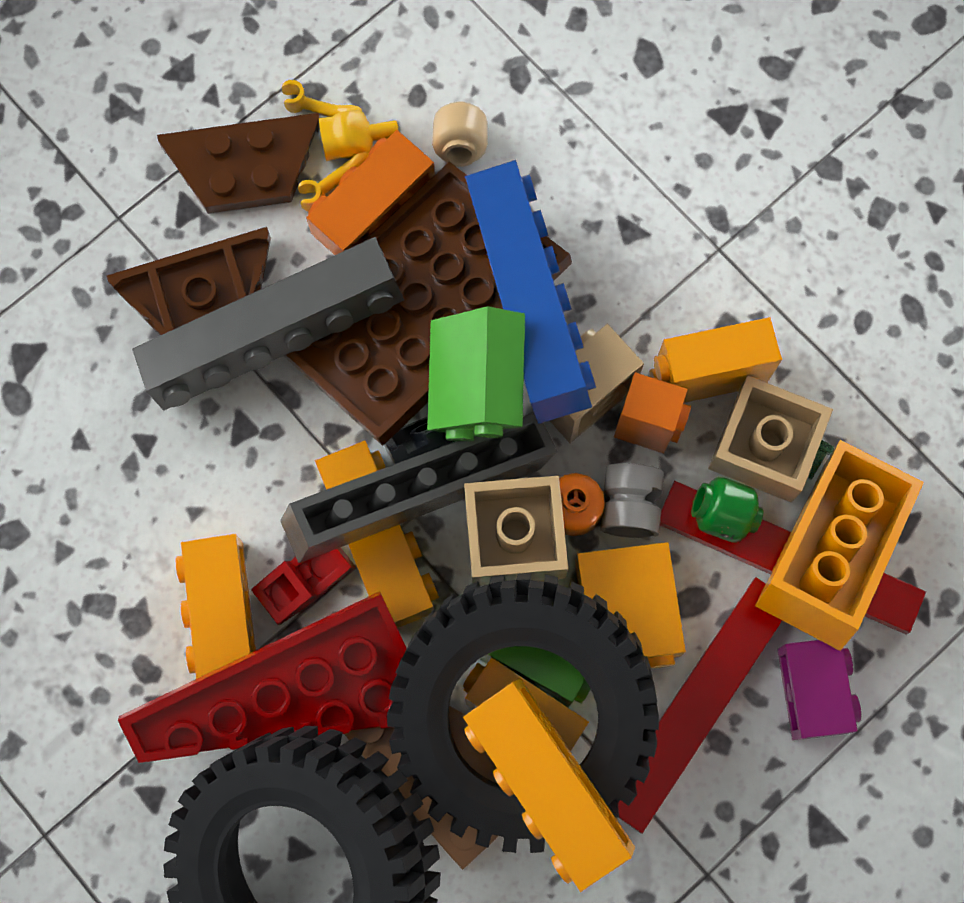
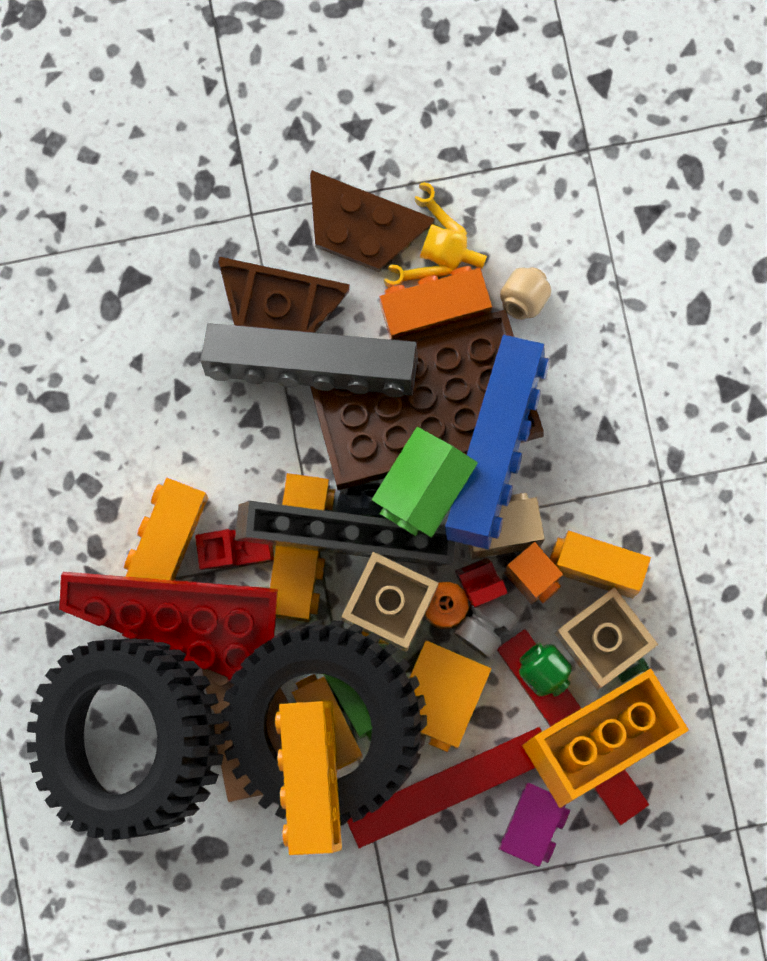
camera: 30 degrees right, 5 degrees up
(599, 455) = (481, 582): none -> red slope

